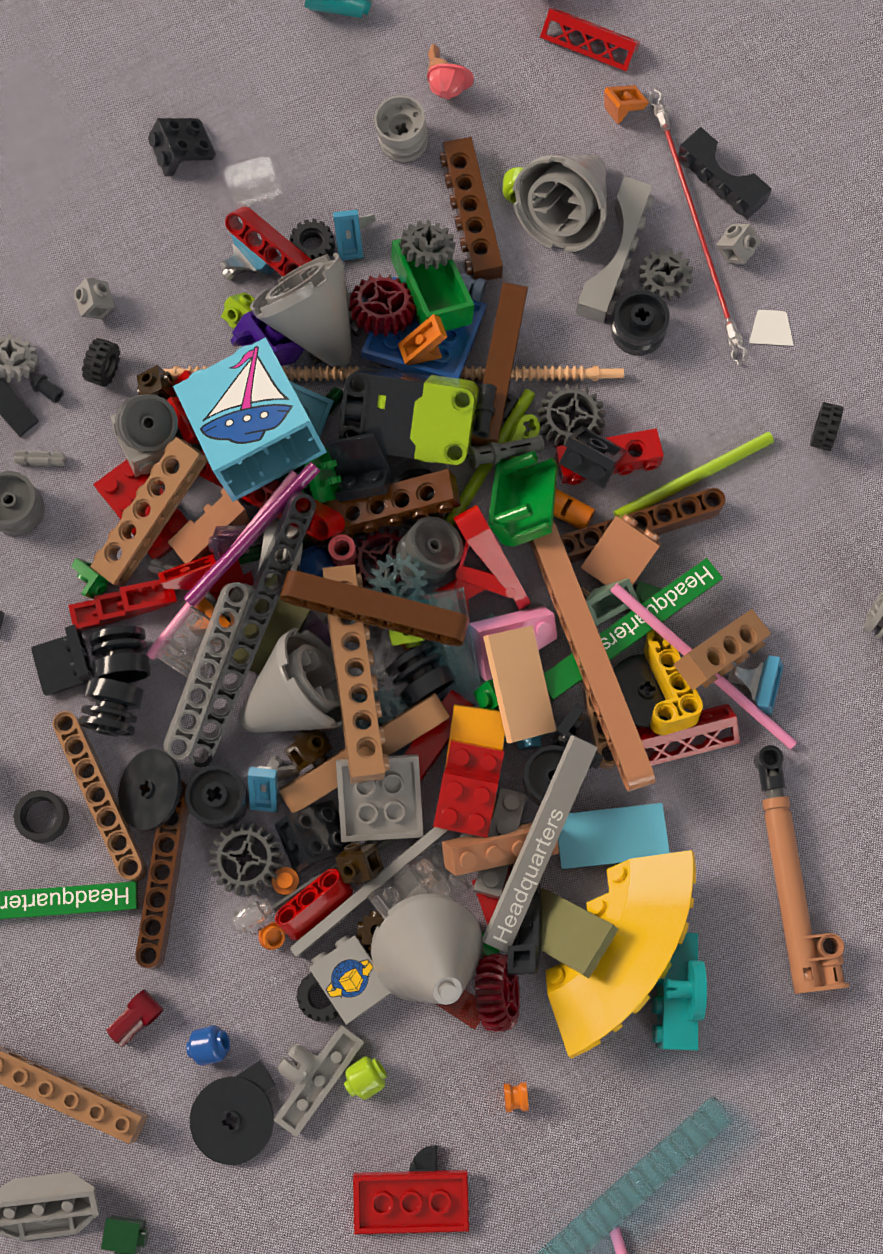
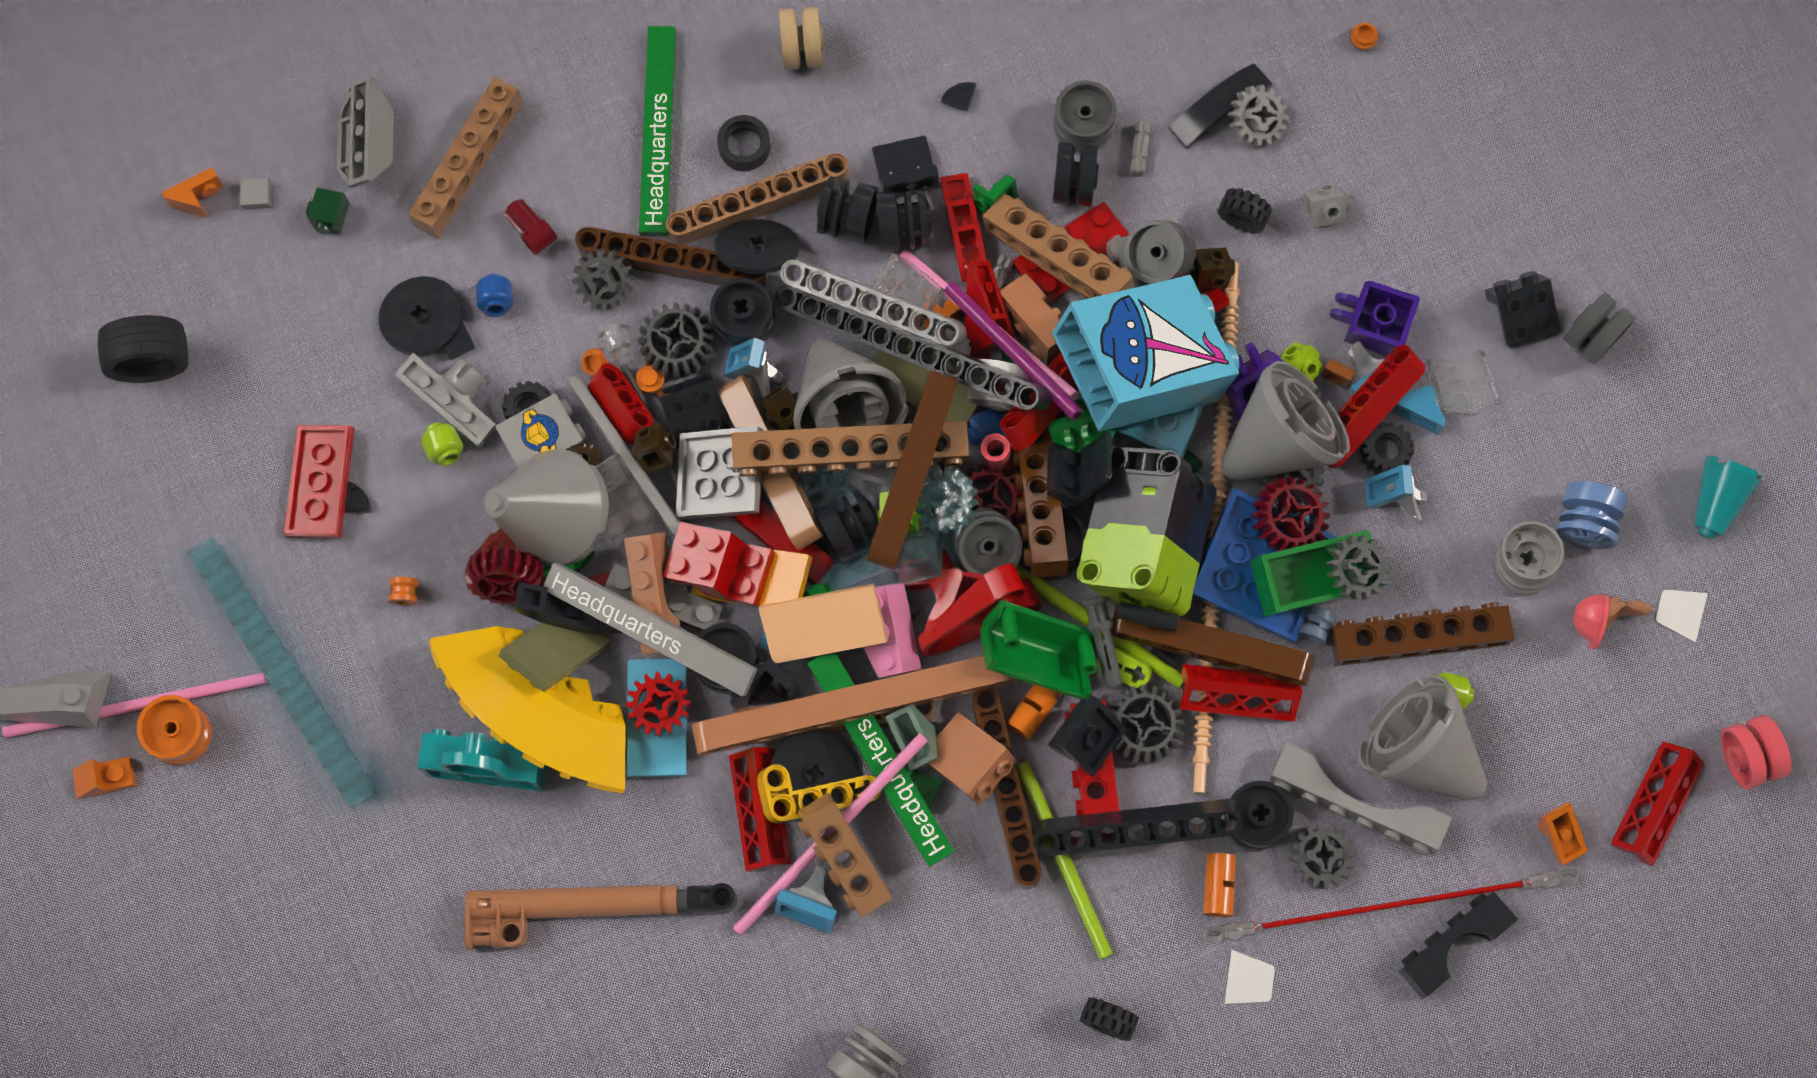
camera: 95 degrees right, 0 degrees up
(41, 384) = (1222, 155): black pin -> none
(70, 505) = (1074, 174): none -> black wheel
(184, 945) = (613, 284): none -> dark grey gear
(196, 250) = (1374, 302): none -> dark purple hinge
(199, 81) = (1596, 325): none -> dark grey wheel
(224, 538) = (1016, 325): clear purple bracket -> none
(247, 280) = (1338, 373): none -> dark orange tile
(277, 211) = (1421, 408): none -> dark azure slope
(361, 83) = (1591, 514): none -> medium blue wheel
(423, 342) = (1236, 555): orange slope -> none
(431, 27) = (1681, 611): none -> white sticker
(530, 341) = (1238, 683): none -> red fence
(611, 842) = (668, 699): none -> red gear
(668, 409) = (1148, 817): none -> black beam
(700, 351) = (1219, 884): none -> orange pin
(738, 243) = (1358, 948): light grey brick -> none

